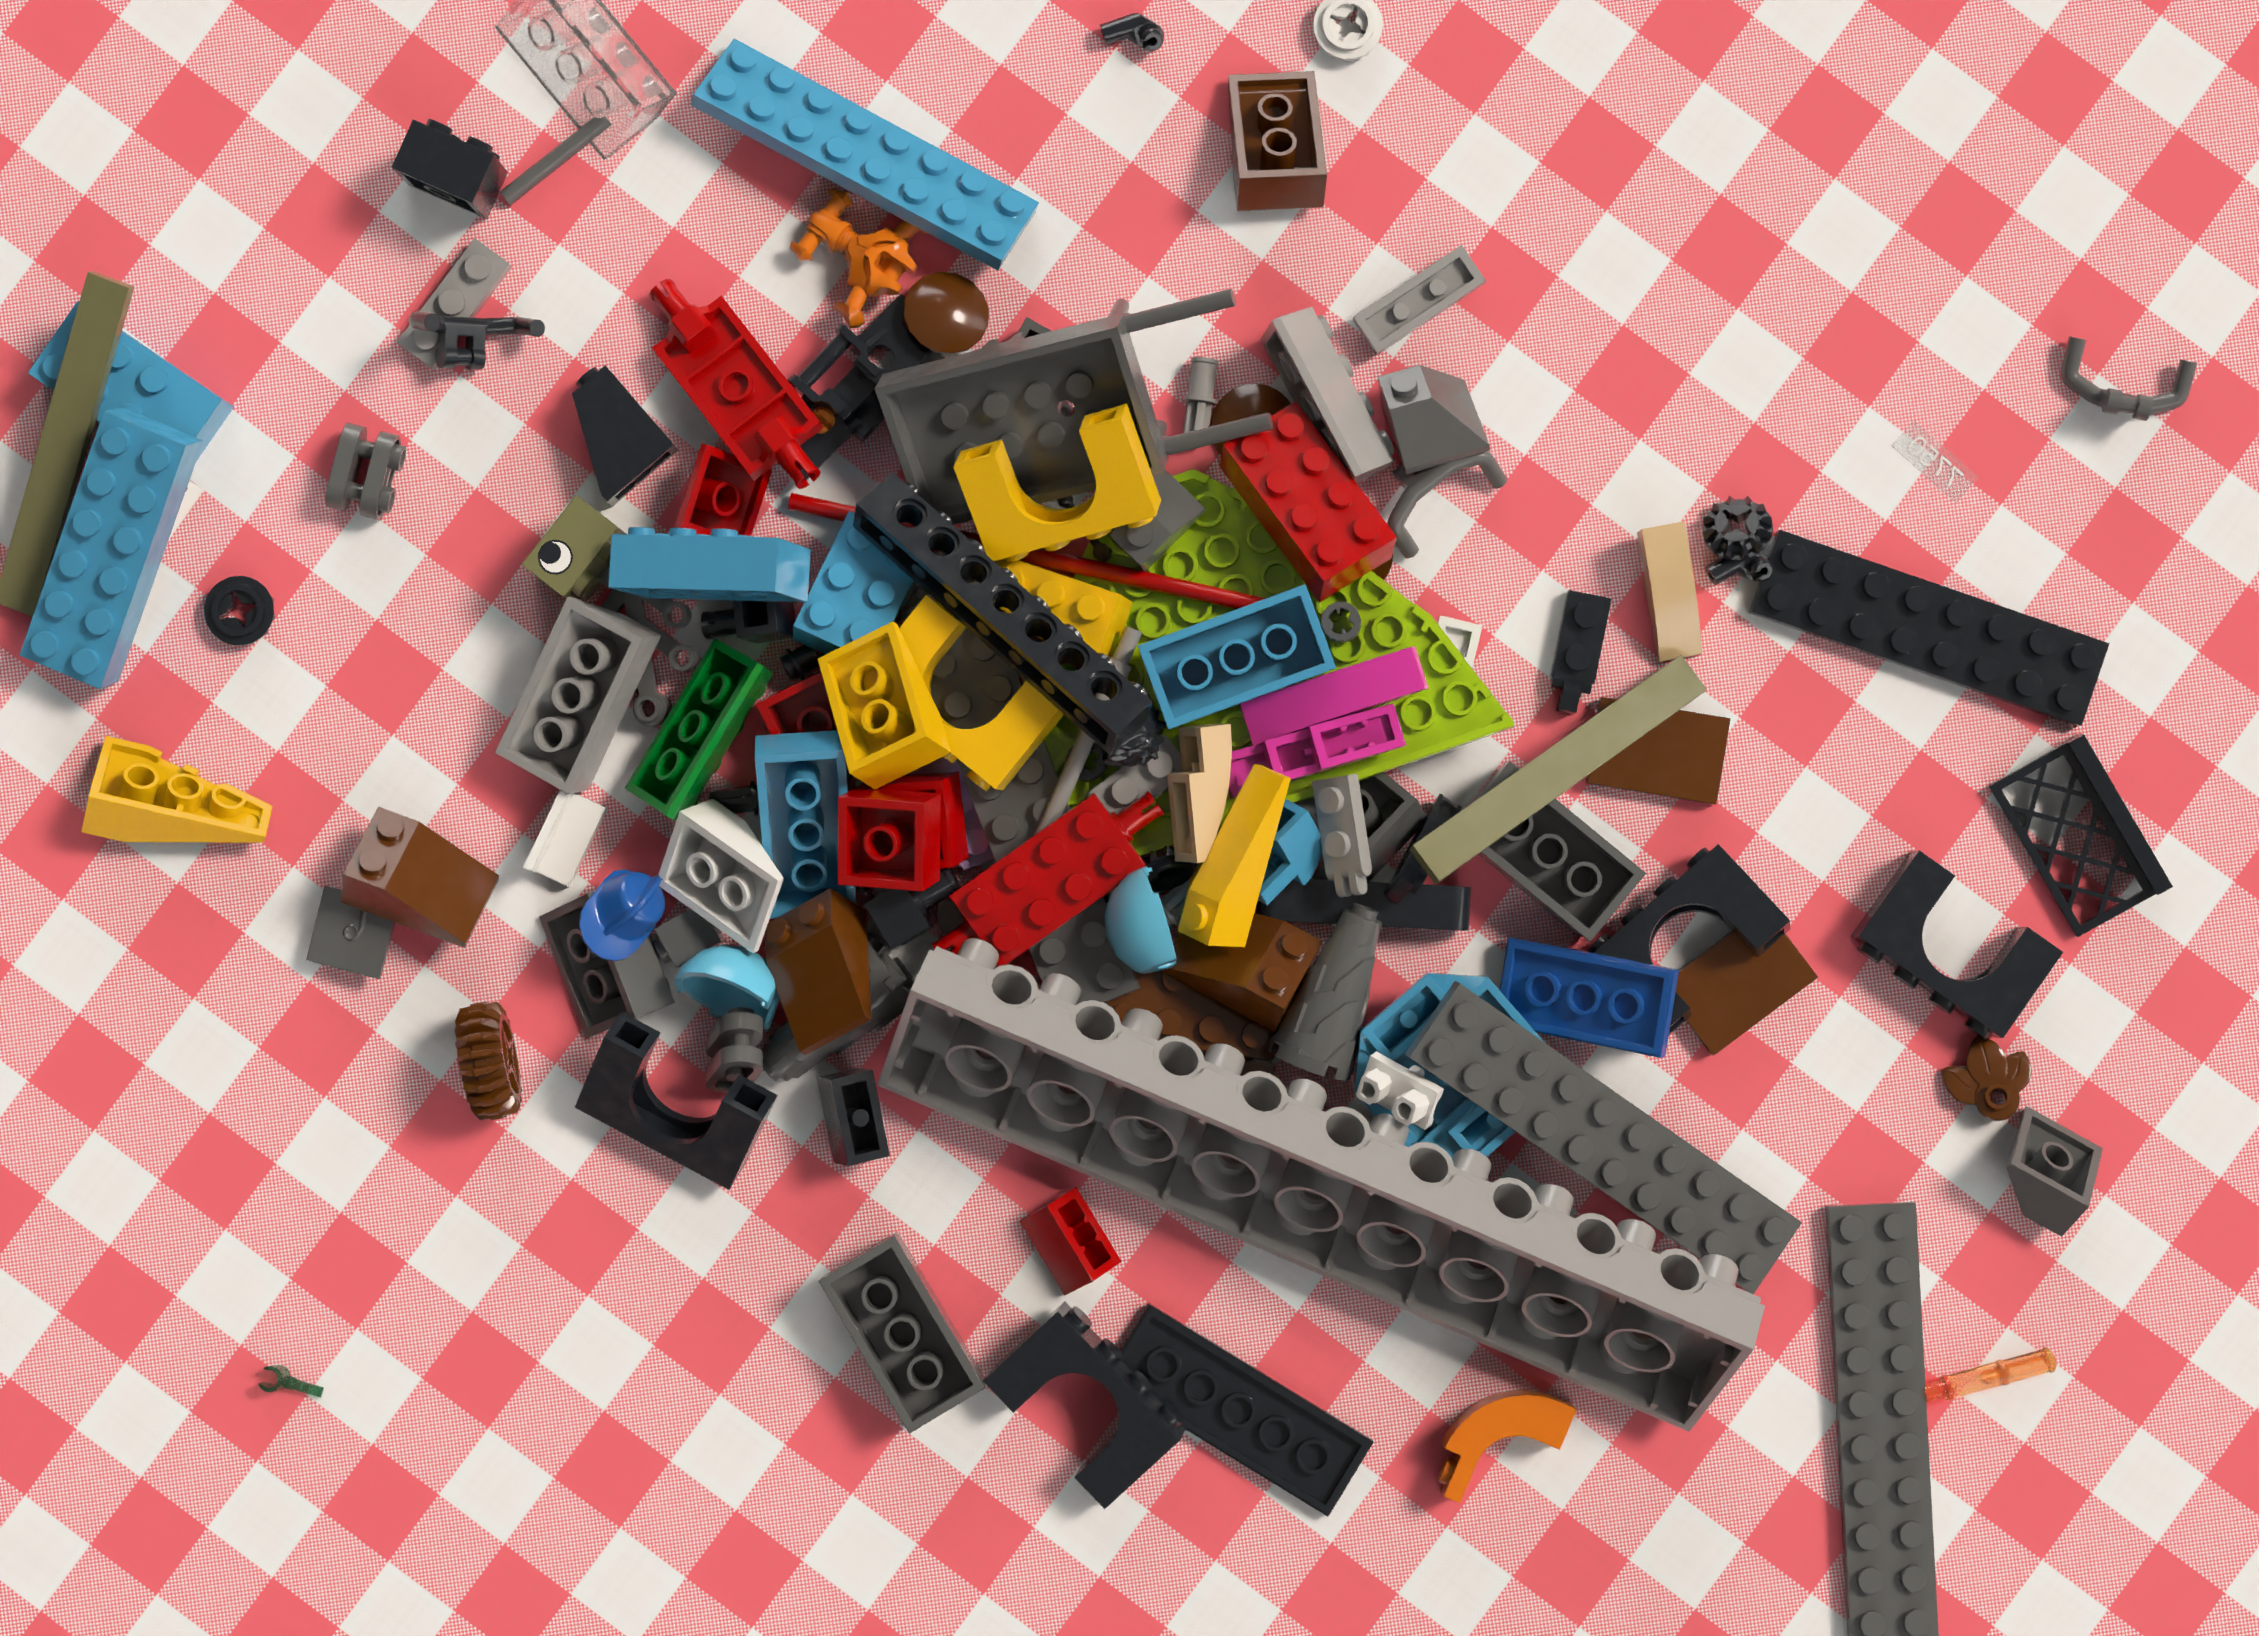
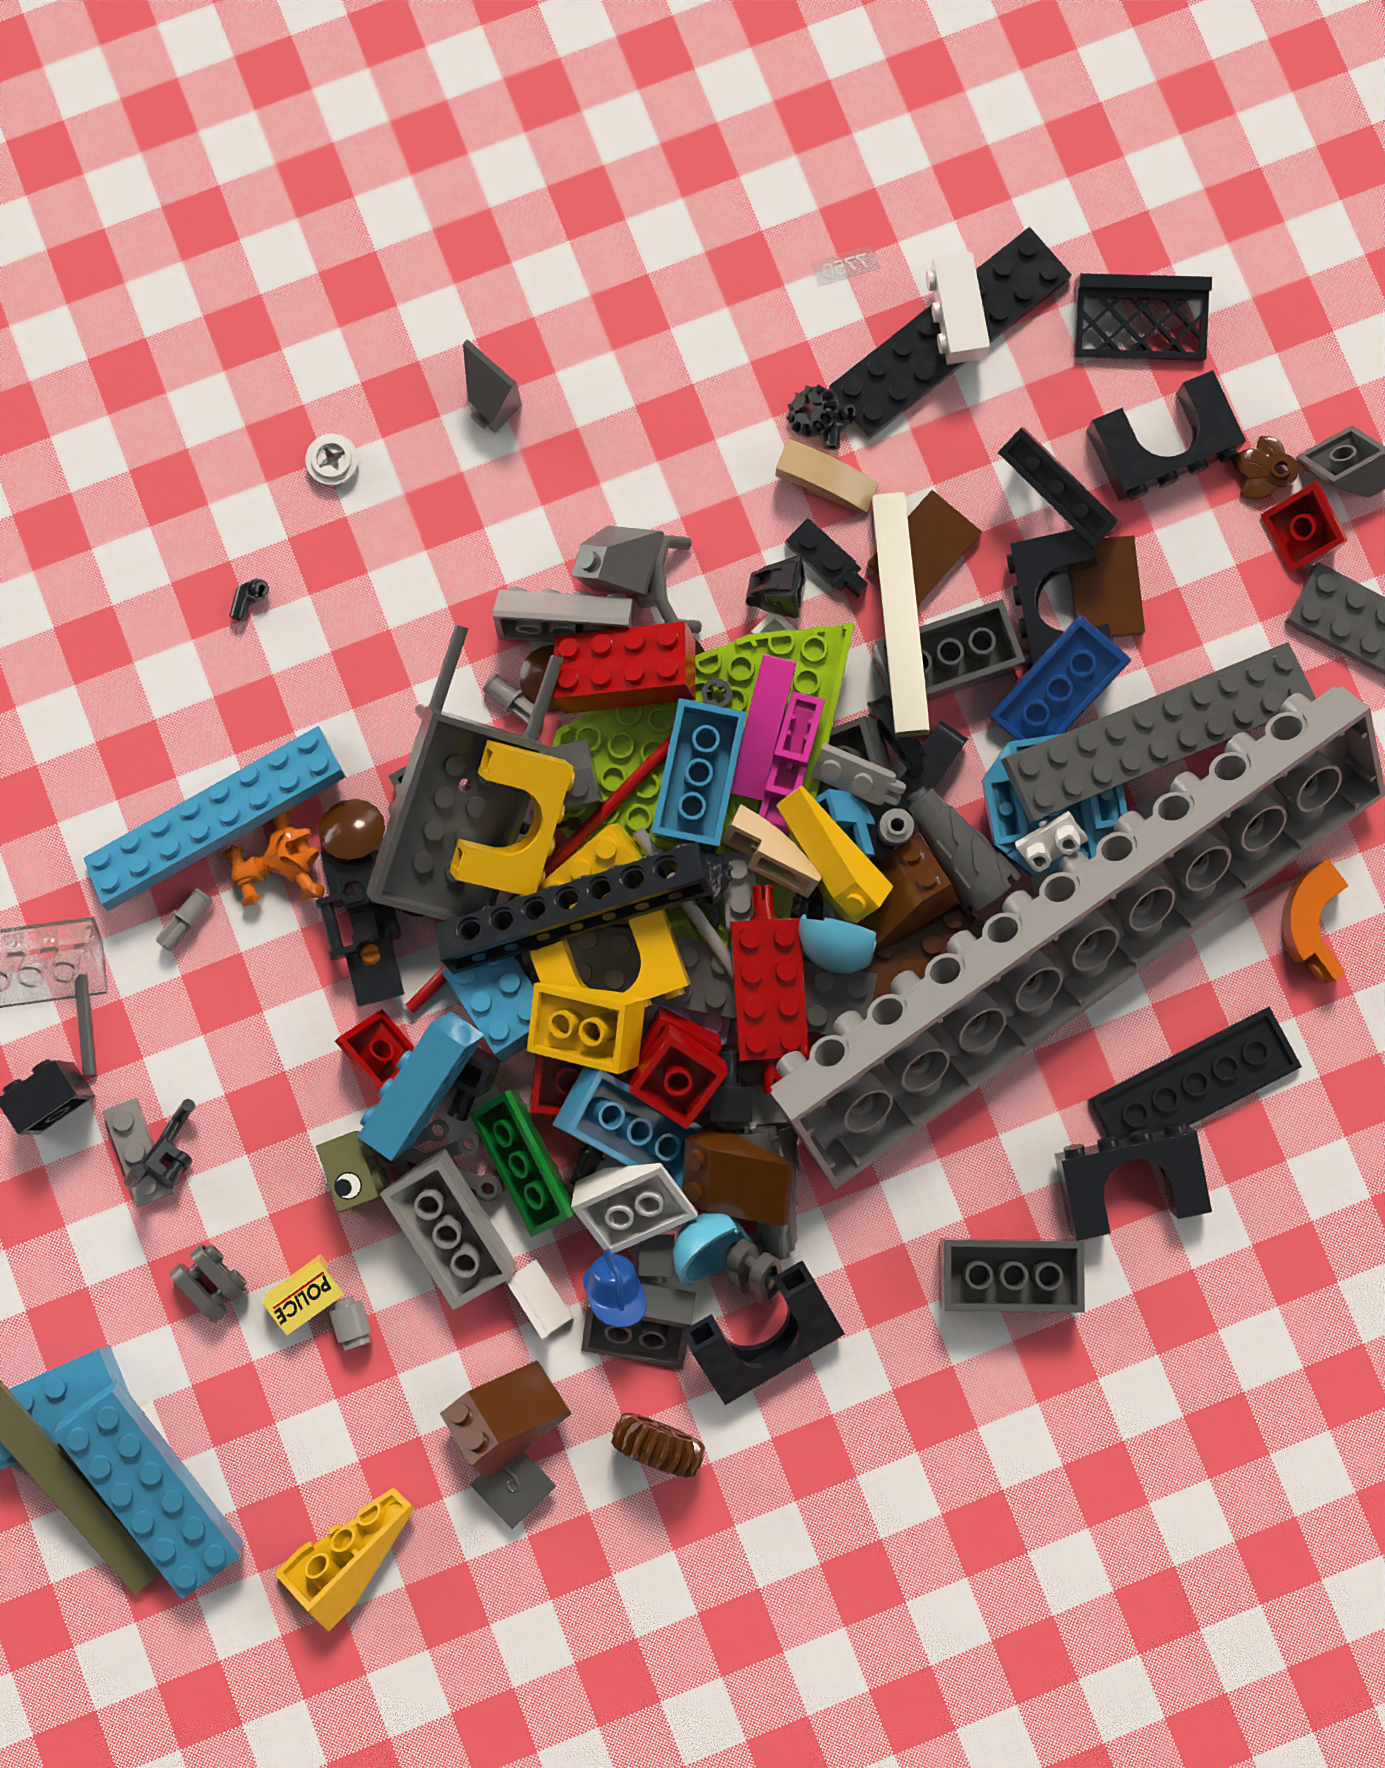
camera: 55 degrees left, 5 degrees down
(222, 601) = (235, 1436): black gear -> none
(286, 1381) = (792, 1722): clear green hand -> none
(412, 580) = (302, 1295): none -> light yellow panel
(414, 650) = (350, 1323): none -> light grey brick
(618, 434) = (294, 1094): black slope -> none
(734, 192) = (183, 919): none -> light grey axle
(736, 386) = (311, 996): red plate -> none
(800, 661) = (520, 1067): black pin -> none
(853, 1116) = (846, 1219): black brick -> none
(1070, 1241) = (1016, 1125): red brick -> none
(1276, 141) = (378, 549): reddish brown slope -> none
(1297, 910) = (888, 835): none -> light grey brick
(1419, 300) = (537, 522): light grey plate -> none
(1508, 615) = (778, 587): none -> black piece
(1532, 151) = (490, 391): none -> dark grey slope
(1816, 861) = (1059, 487): none -> black fence
(1943, 1163) = (1304, 527): none -> red slope
(1955, 620) = (958, 308): none -> white brick
(2115, 400) = (877, 128): dark grey piece -> none

